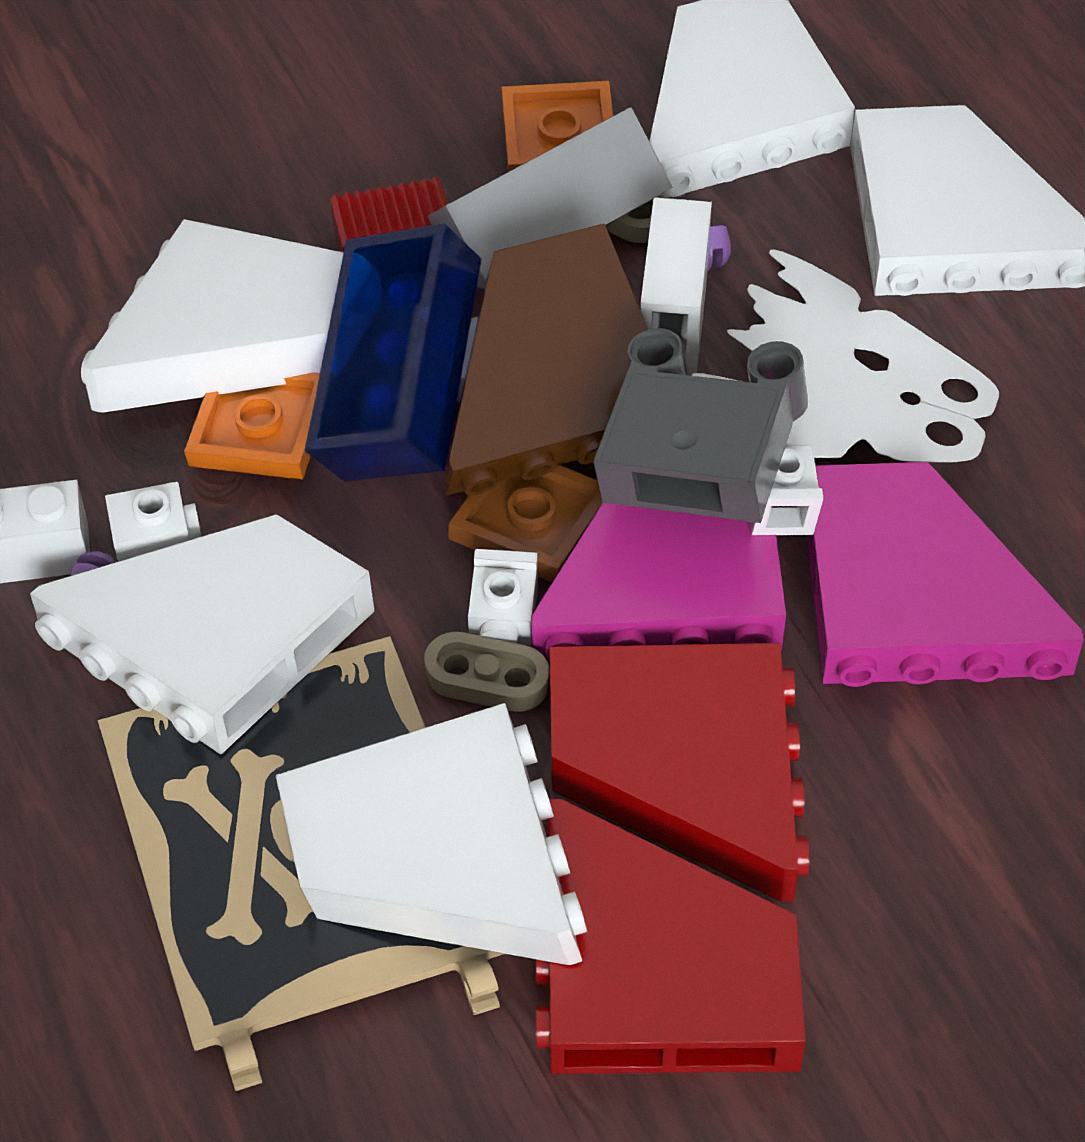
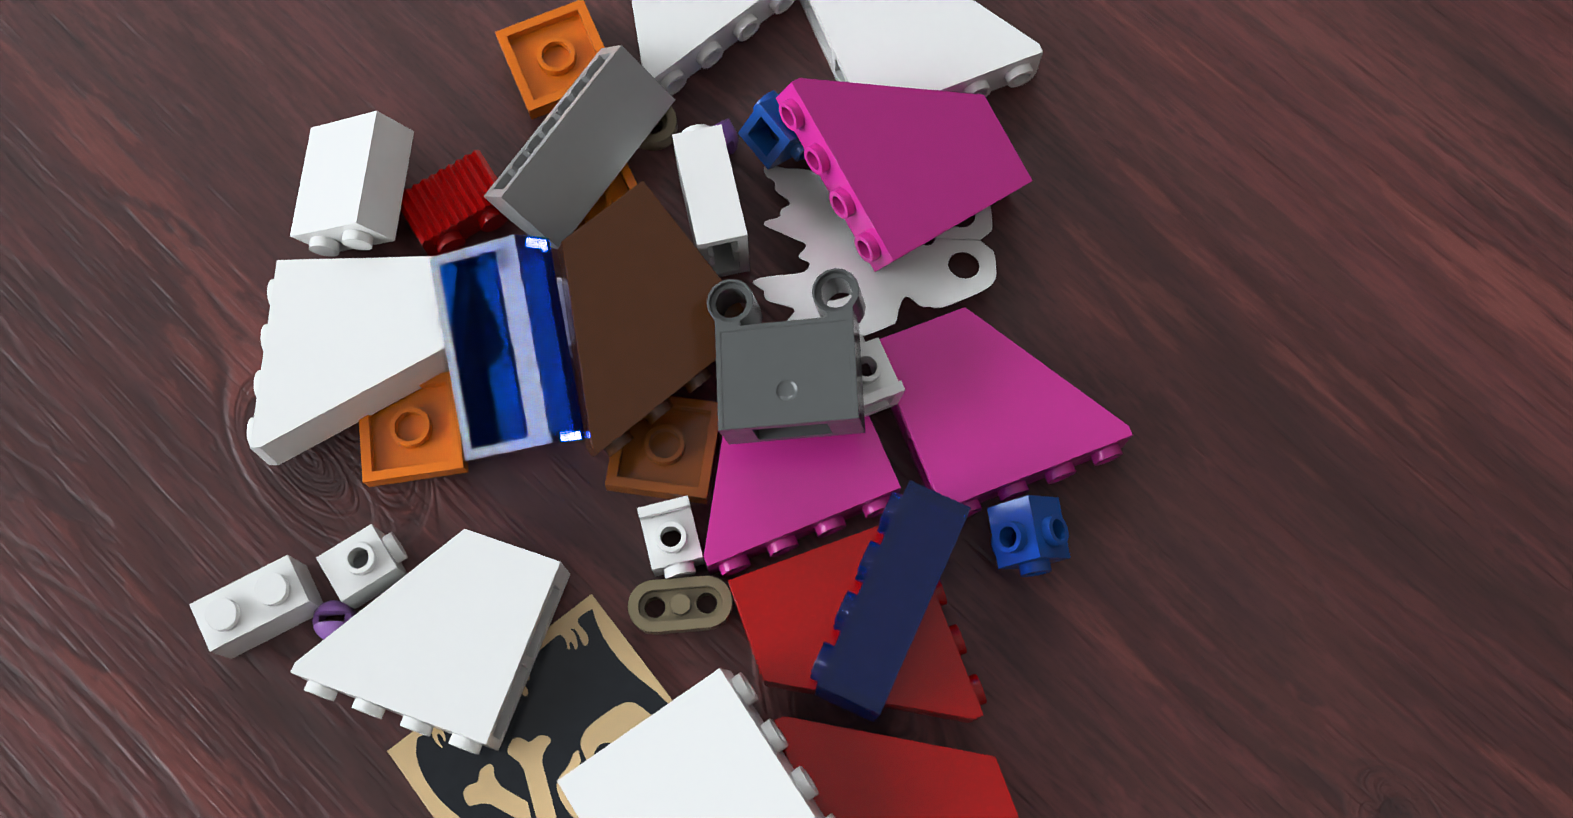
camera: 20 degrees left, 20 degrees up
(294, 172) = (352, 184): none -> white brick
(724, 693) = (894, 595): none -> clear blue piece
(782, 241) = (769, 135): none -> blue brick
(907, 300) = (901, 159): none -> dark pink slope
(923, 709) = (1029, 534): none -> blue brick

